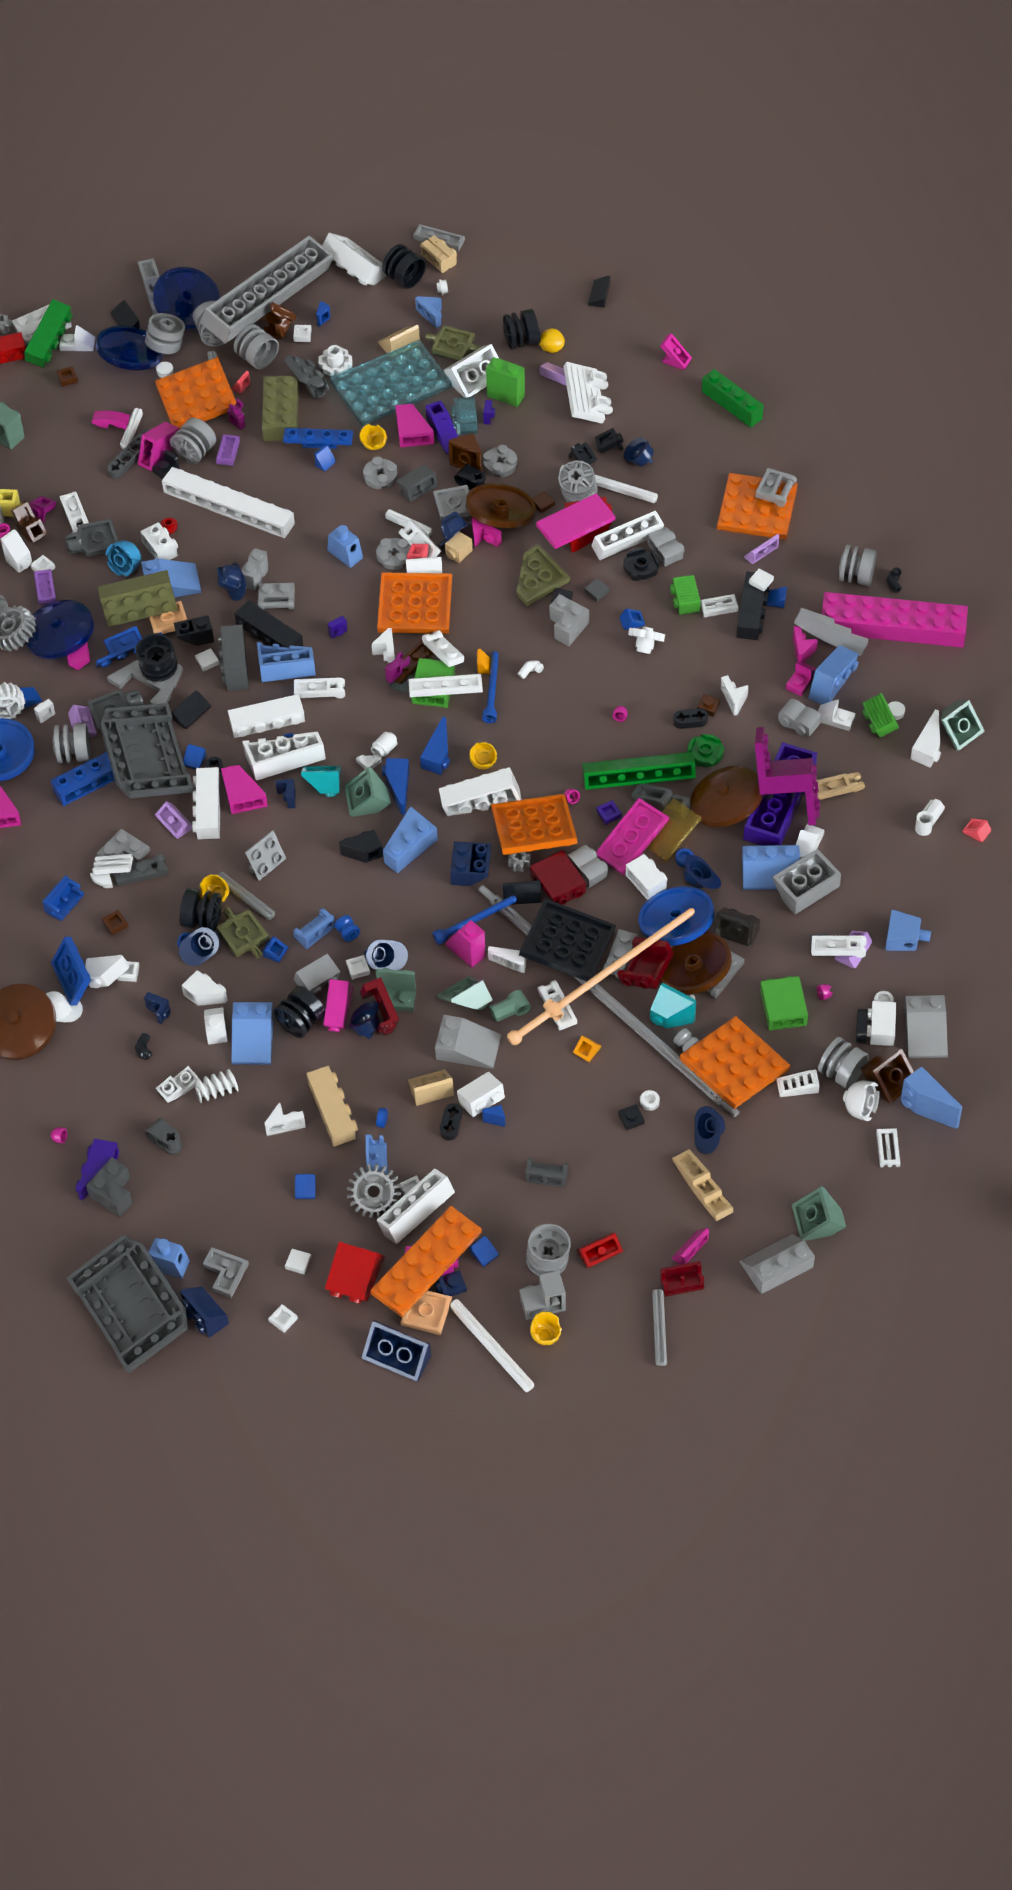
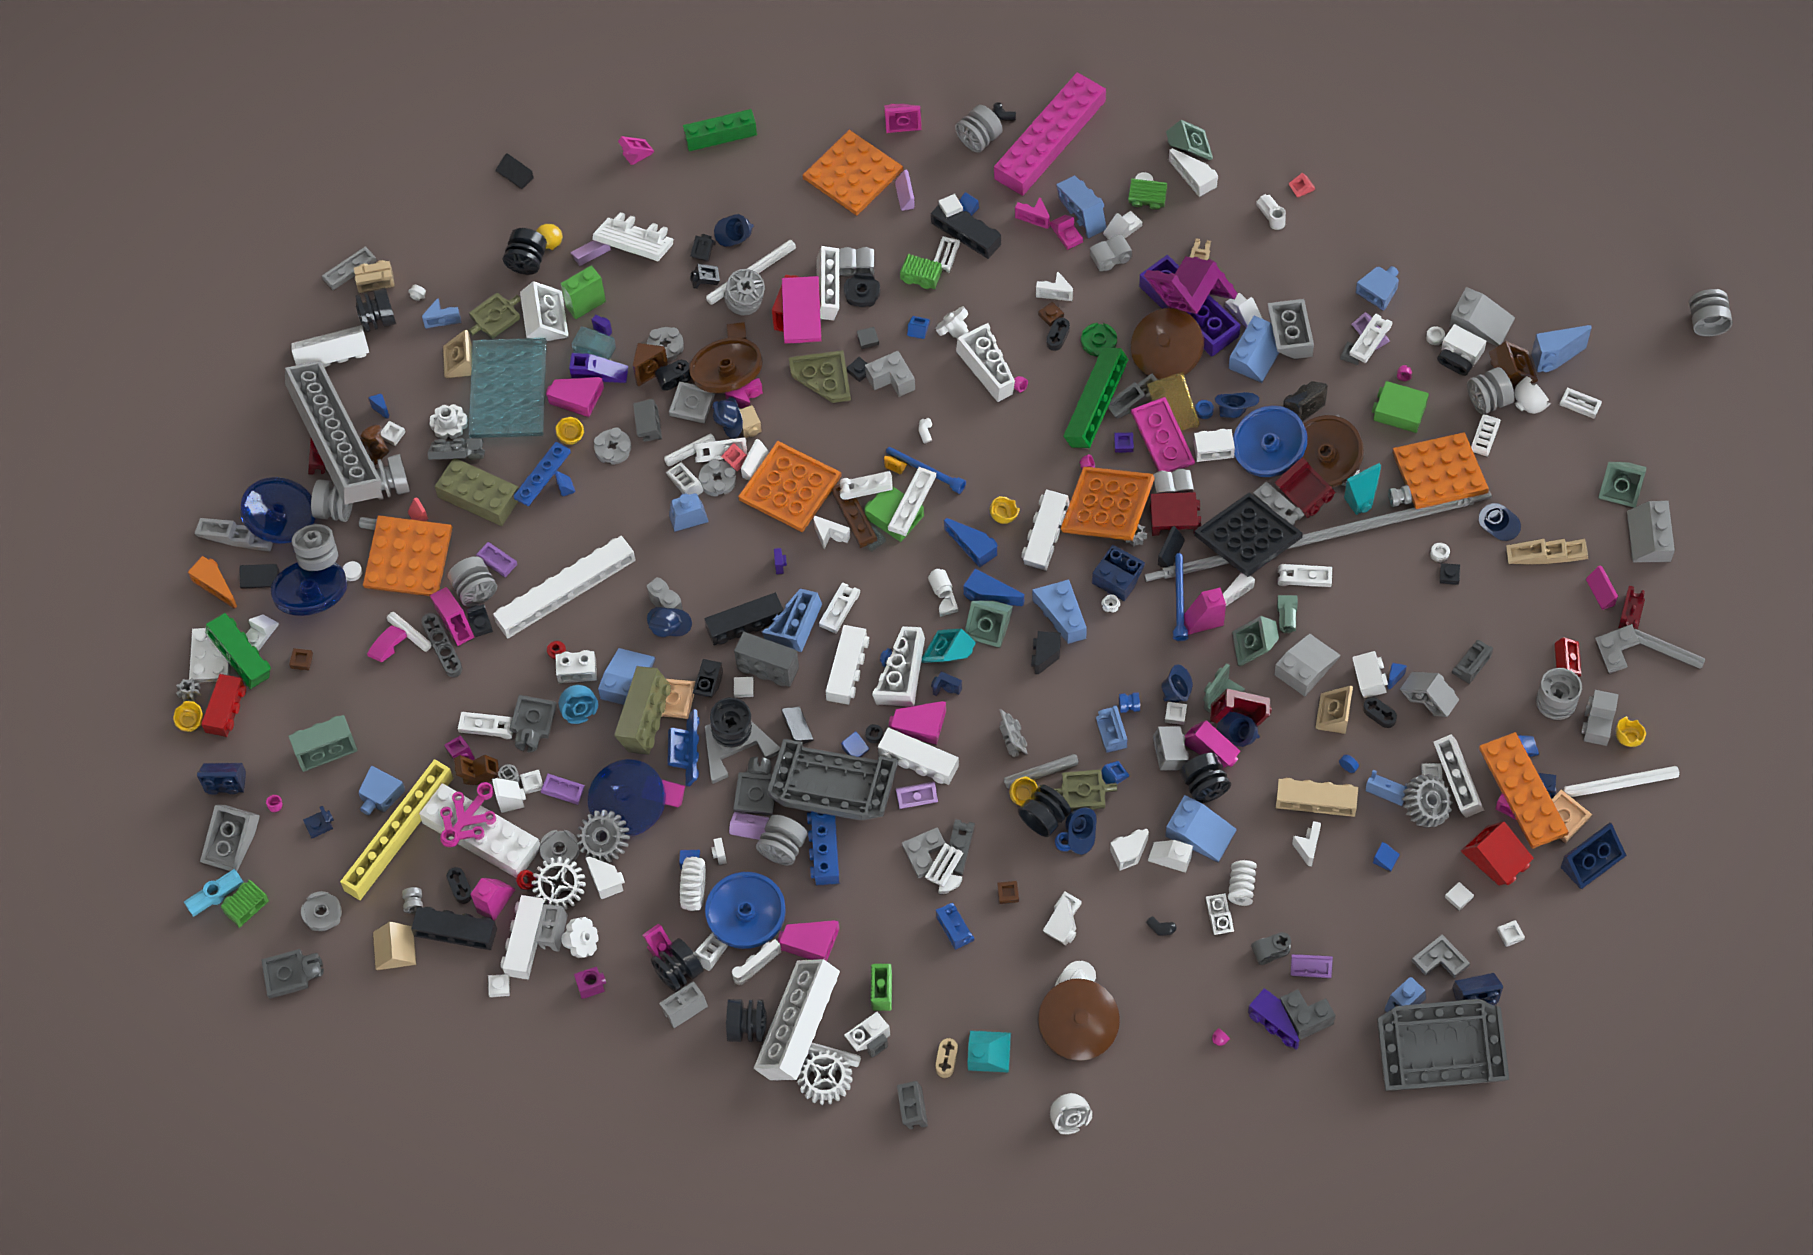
camera: 60 degrees left, 5 degrees up
(36, 547) = (511, 770): none -> light grey wheel
(70, 971) = (1050, 949): blue plate -> none
(104, 292) = (208, 576): none -> orange slope
(158, 1005) = (1124, 894): dark blue bracket -> none
(163, 1173) = (1311, 966): none -> medium lavender plate
(235, 414) = (461, 533): magenta plate -> none
(276, 595) = (701, 593): light grey plate -> none
(375, 534) = (694, 484): none -> white slope
(394, 669) = (866, 534): magenta plate -> none
(439, 869) = (1110, 599): none -> white plate
(488, 1143) = (1430, 690): none -> light grey brick
(553, 1009) = (1316, 577): light nougat bar -> none
(586, 1048) = (1361, 575): light orange slope -> none
(624, 677) = (986, 361): none -> white wedge
(632, 1278) = (1612, 644): none -> light grey plate
(770, 485) = (846, 149): light grey plate -> none
(830, 507) = (902, 118): none -> dark pink slope
(830, 632) = (1038, 184): light grey slope -> none

